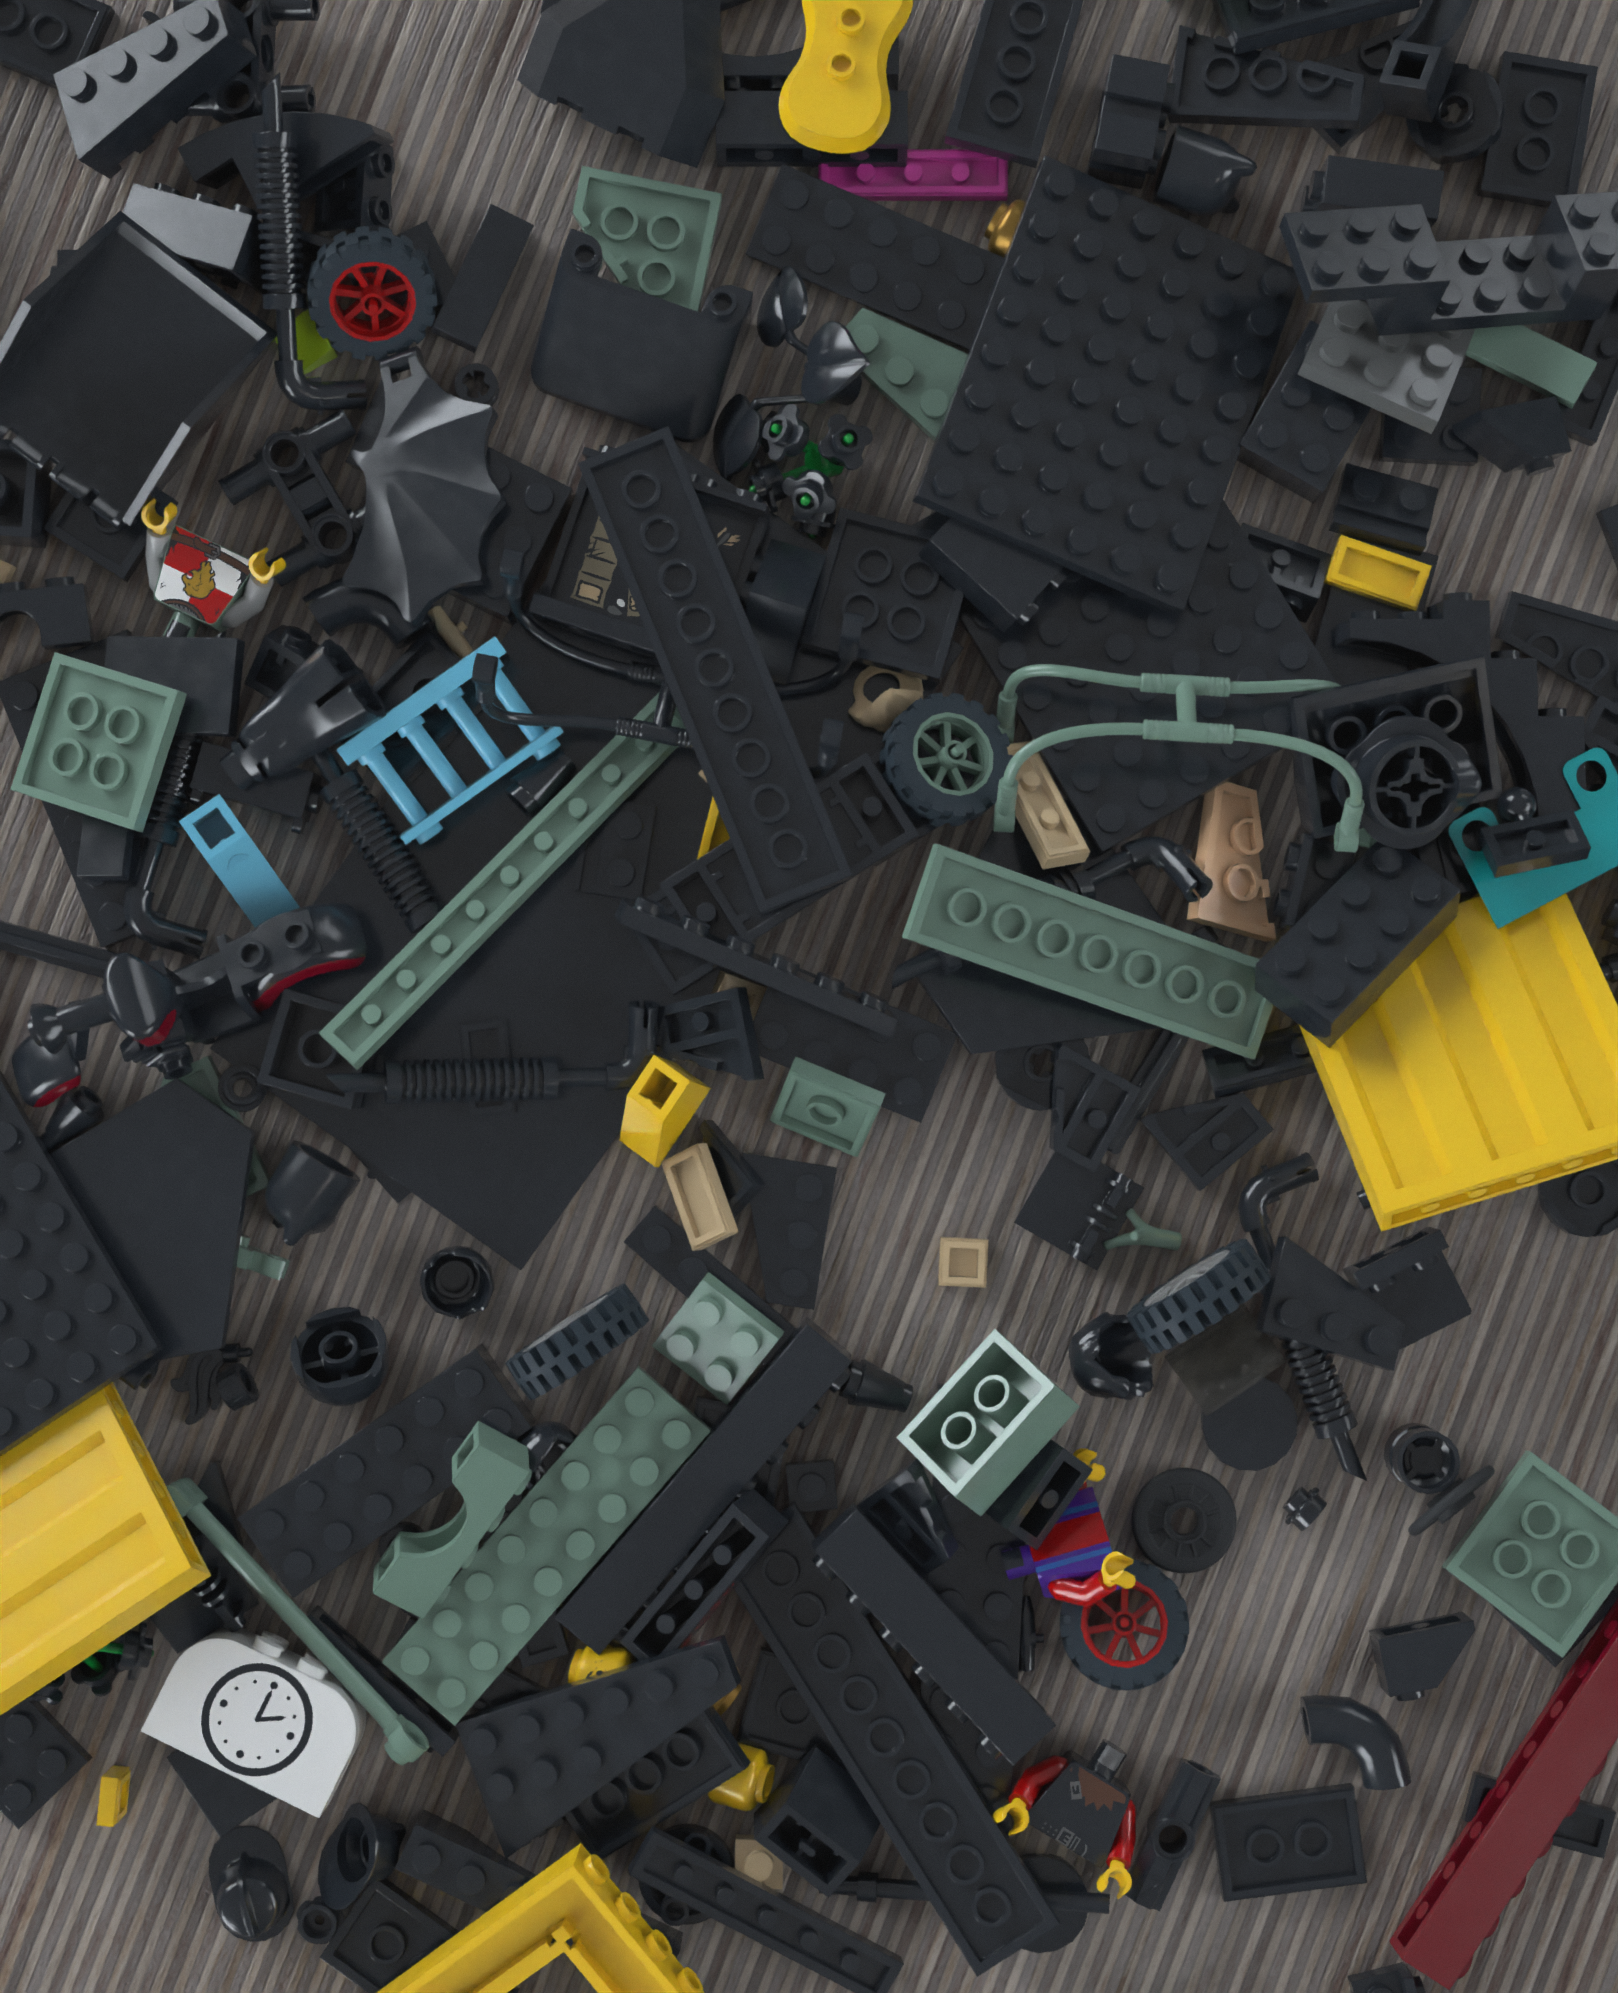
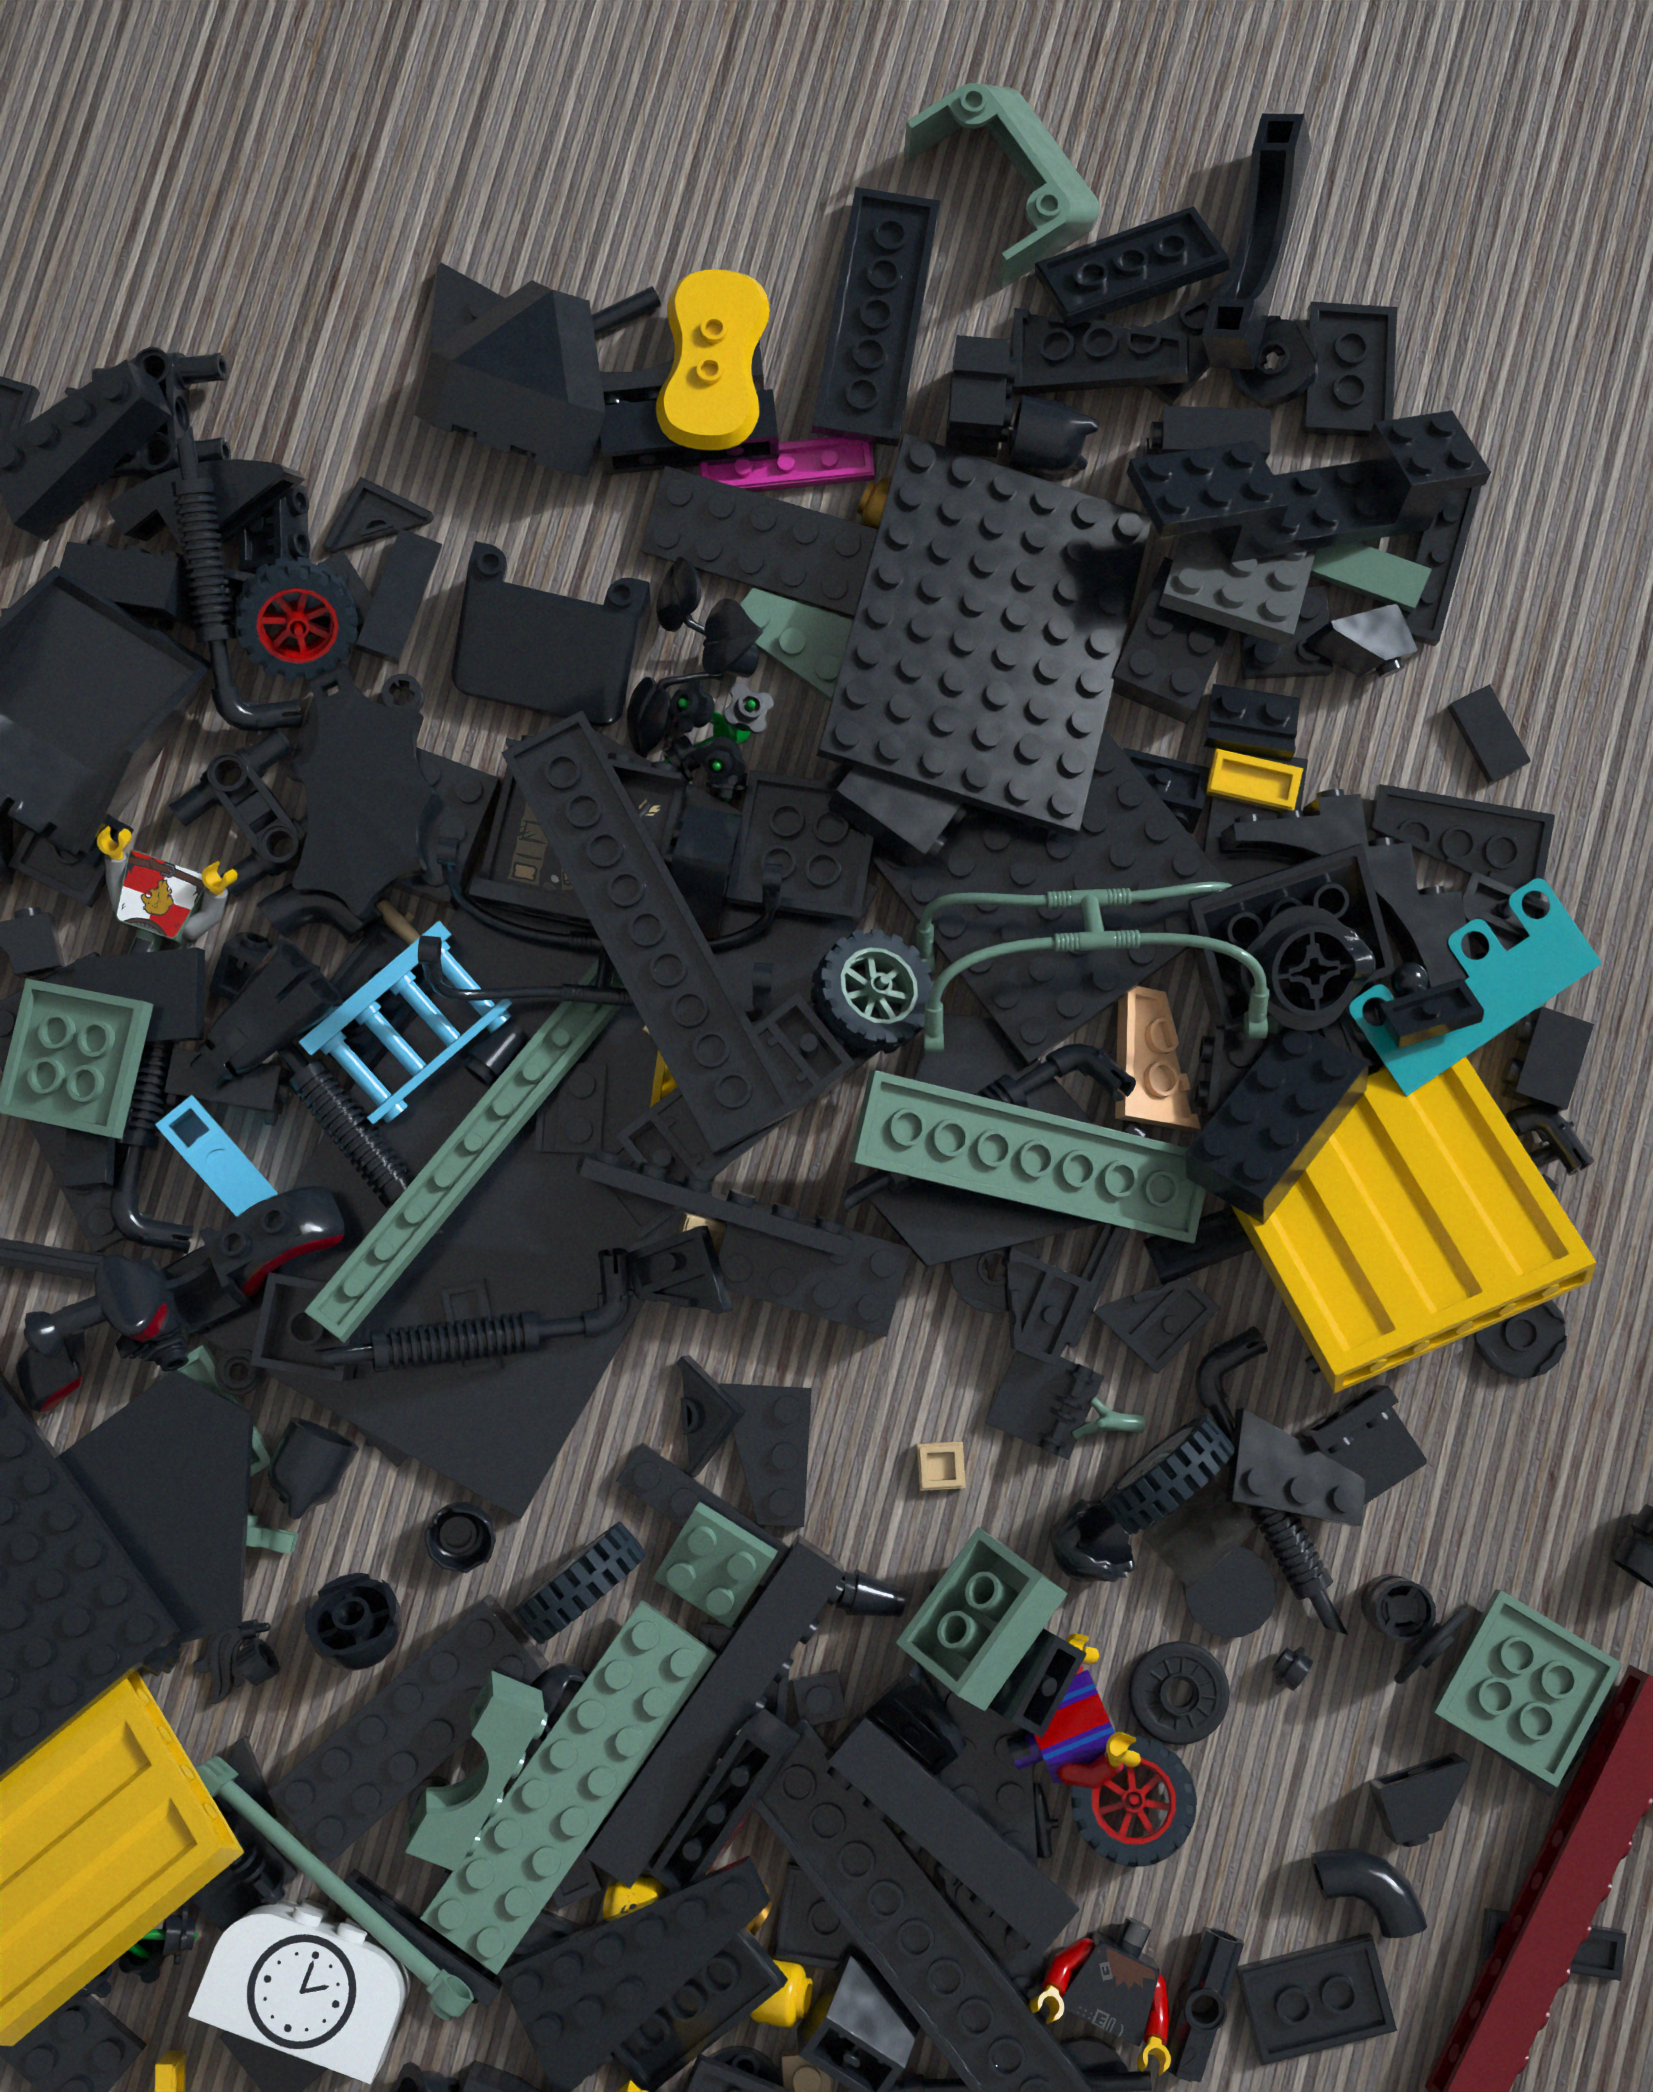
camera: 10 degrees left, 5 degrees down
(73, 1114) = (79, 1414): black cone -> none
(310, 345) = (245, 673): lime slope -> none
(462, 185) = (372, 515): none -> black tile
(650, 232) = (550, 538): sand green plate -> none
(660, 1108) = (638, 1349): yellow slope -> none
(699, 1196) = (684, 1430): tan tile -> none
(827, 1107) = (796, 1331): sand green tile -> none
(889, 704) = (814, 946): tan piece -> none
(1045, 815) = (972, 1034): tan tile -> none

